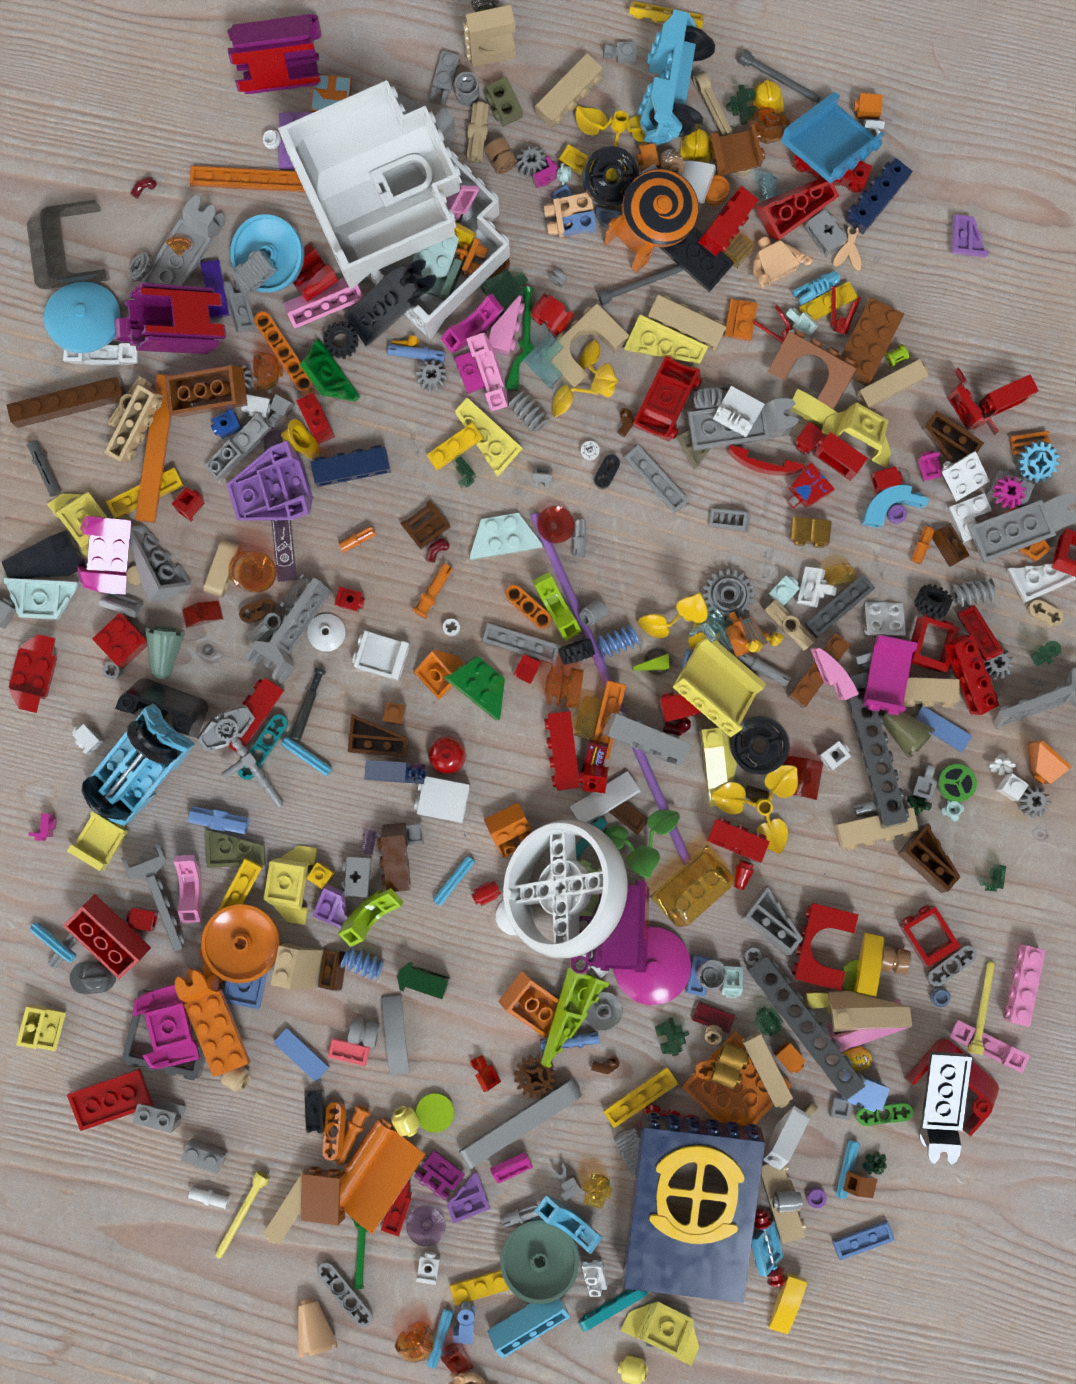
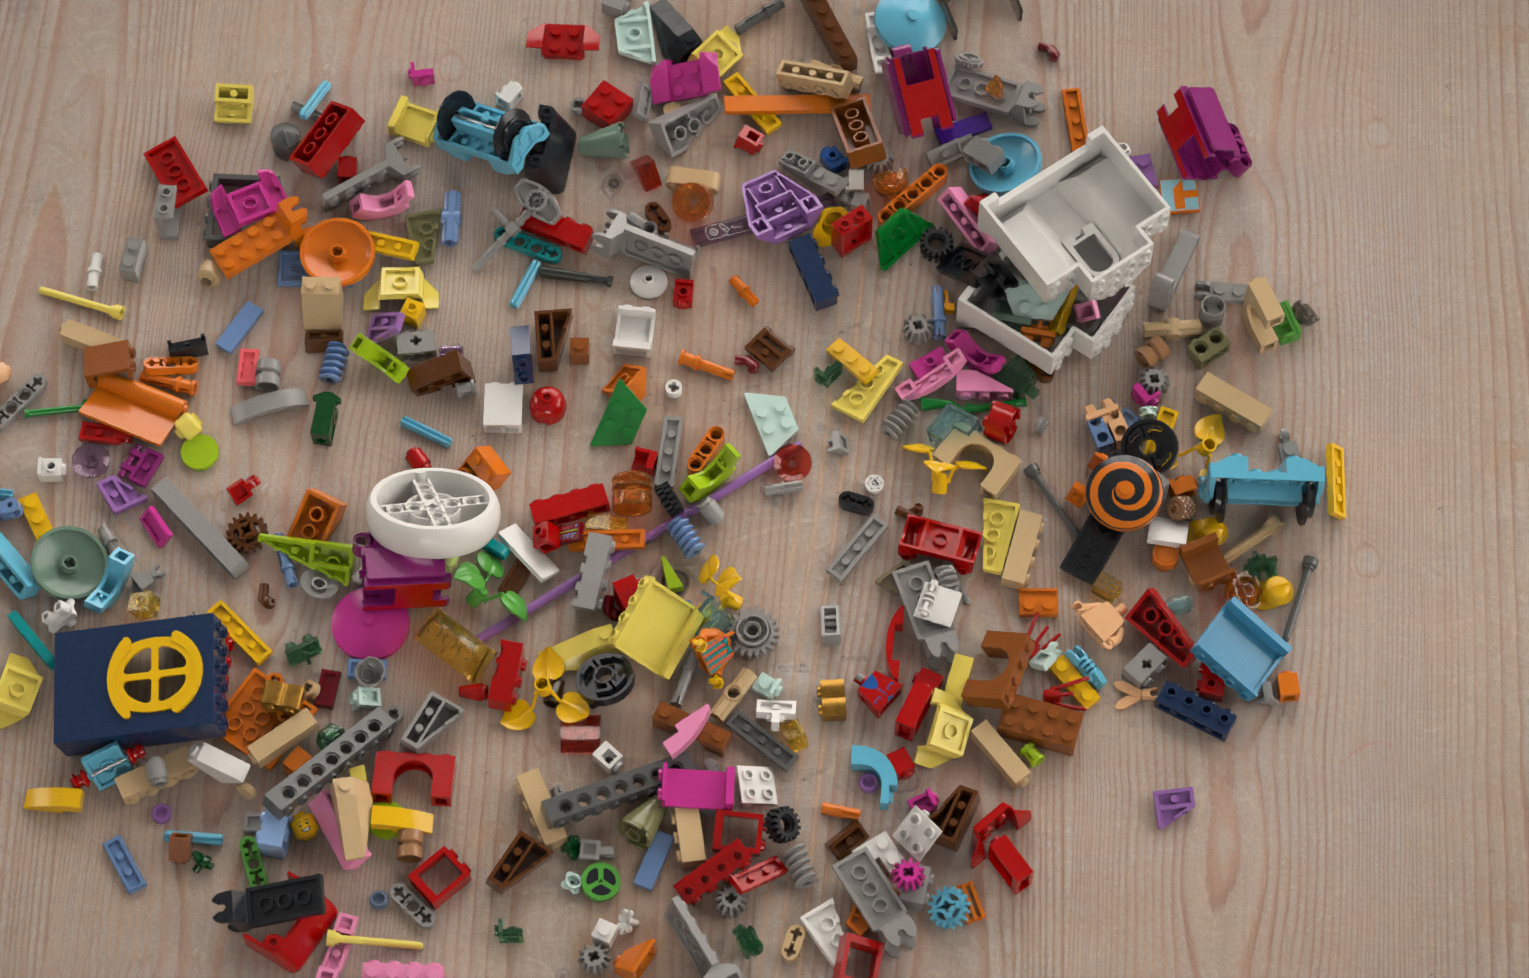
camera: 80 degrees right, 20 degrees down
(728, 220) = (1129, 566): red wedge -> none

